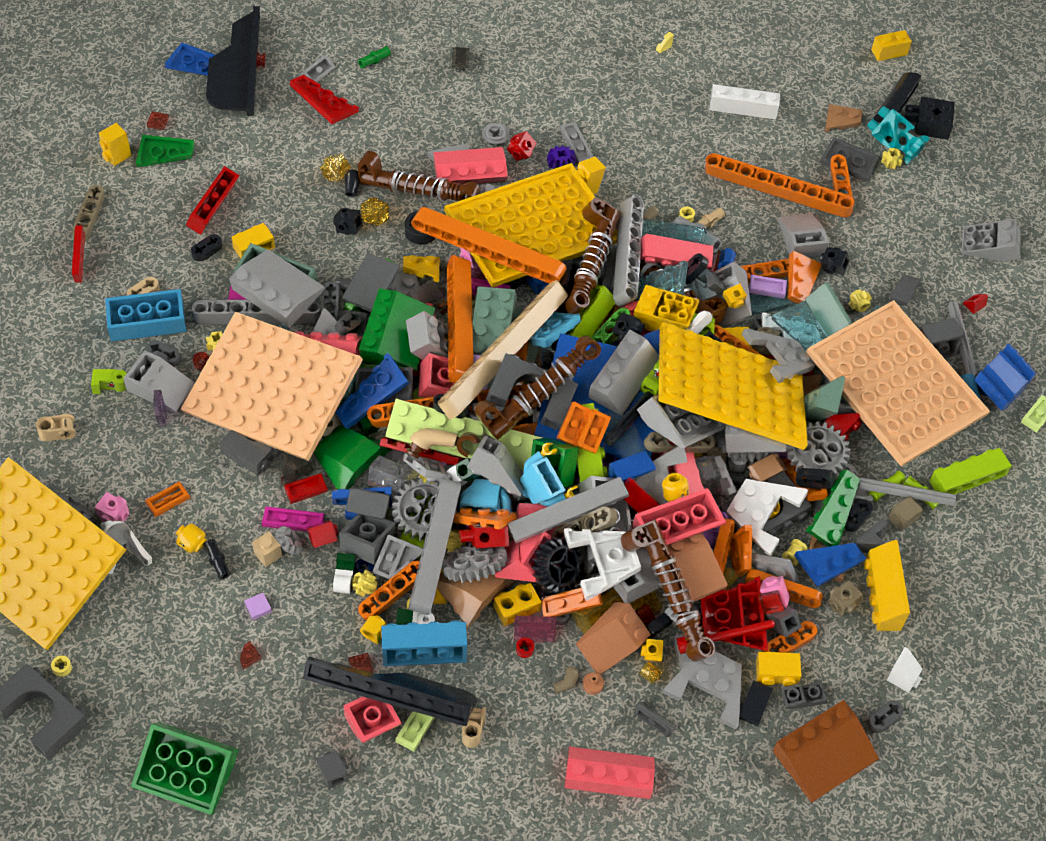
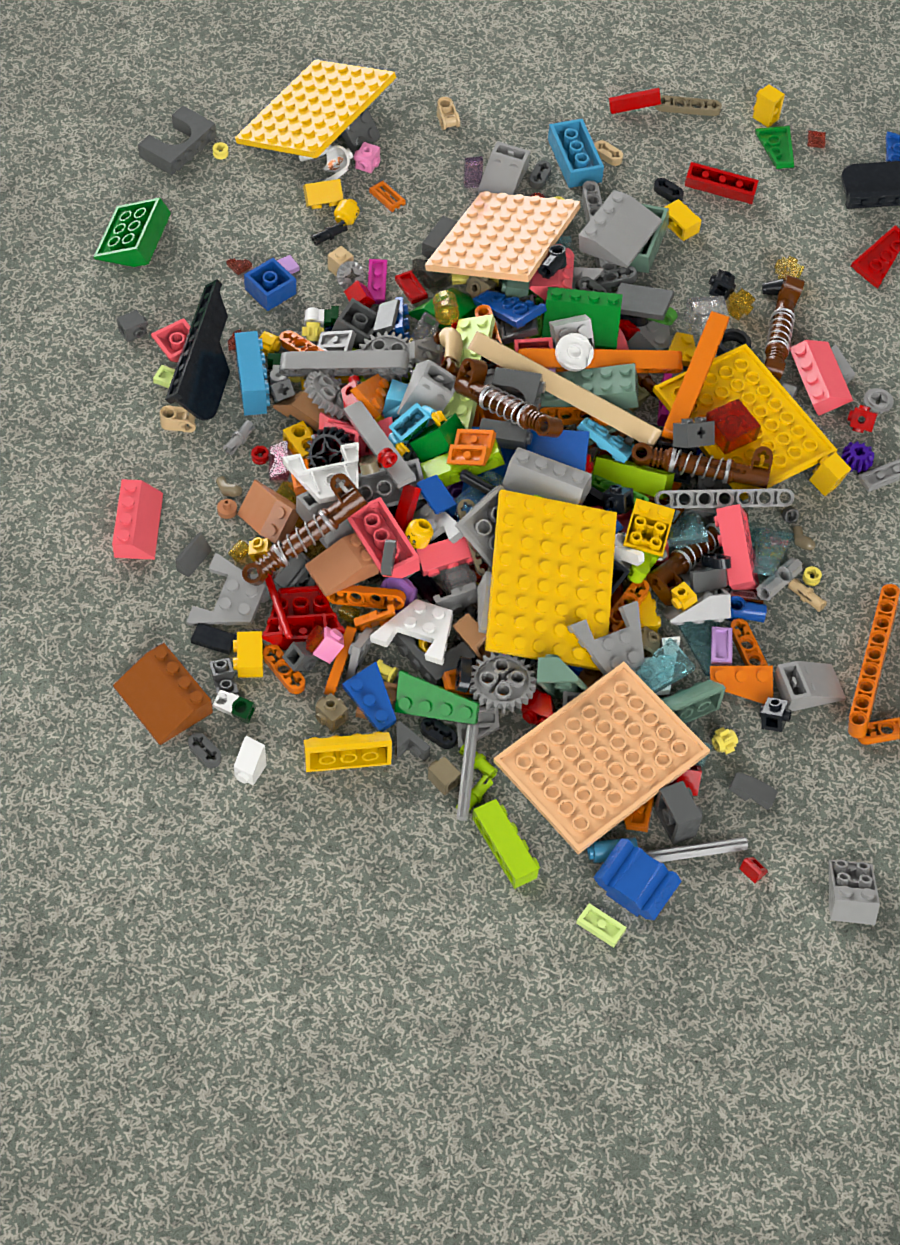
camera: 85 degrees right, 0 degrees up
(107, 380) = (501, 134): lime leg -> none
(160, 557) = (323, 193): none -> yellow brick
(293, 619) = (270, 284): none -> blue brick
(326, 337) = (555, 261): none -> black piece
(366, 445) = (446, 307): none -> clear yellow wheel
(390, 237) = (698, 312): none -> clear brick
(461, 332) = (574, 352): none -> white tile
(461, 609) = (281, 390): none -> dark grey piece
(500, 666) = (239, 437): none -> light grey pin
(551, 228) = (733, 426): none -> clear red brick
(567, 253) = (694, 433): none -> dark grey brick
(600, 497) = (387, 457): none -> red bush
(714, 510) = (388, 557): none -> dark grey beam
(842, 682) = (234, 706): none -> leg

